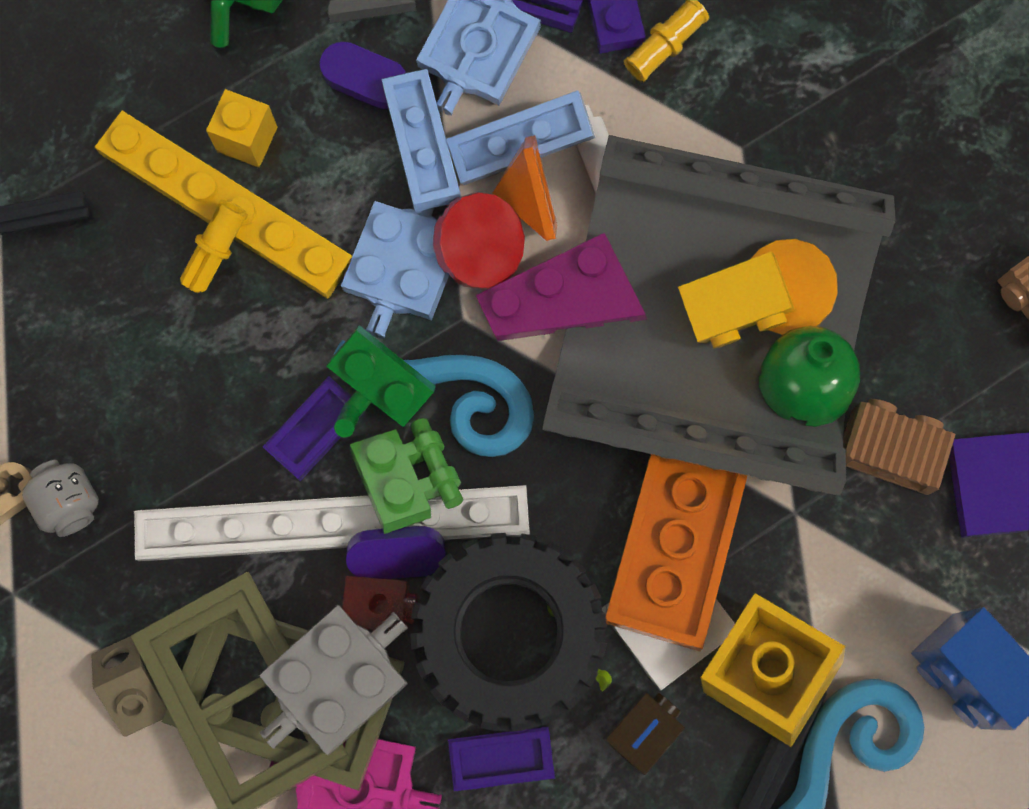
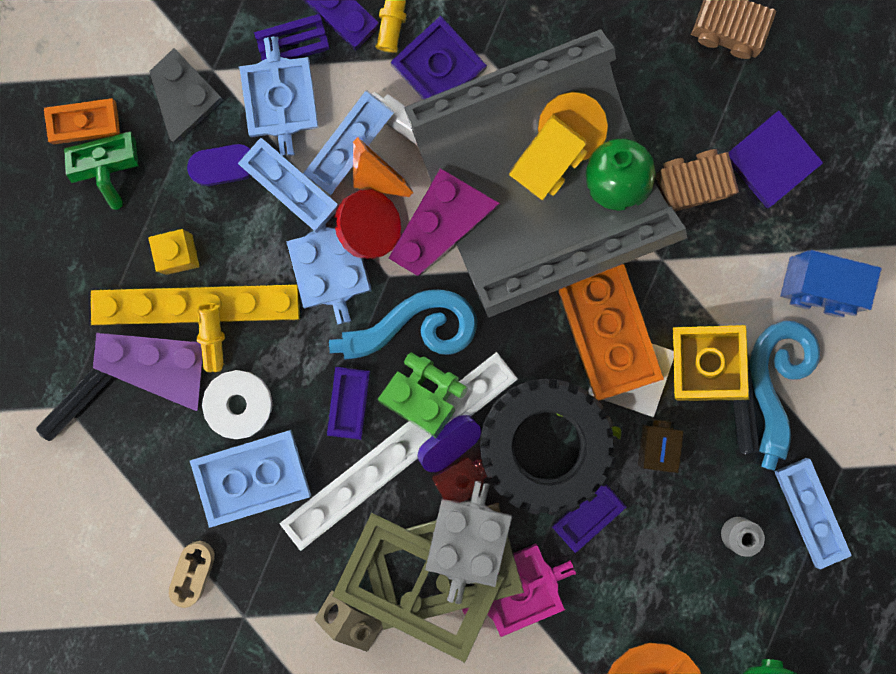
camera: 30 degrees left, 10 degrees up
(60, 498) = (232, 547): light grey head -> none
(128, 234) = (153, 364): none -> medium lavender wing
(140, 435) = (250, 478): none -> light blue plate
(174, 320) = (217, 409): none -> white tile
(378, 379) = (367, 350): green plate -> none
(683, 116) = (437, 61): none -> dark purple tile

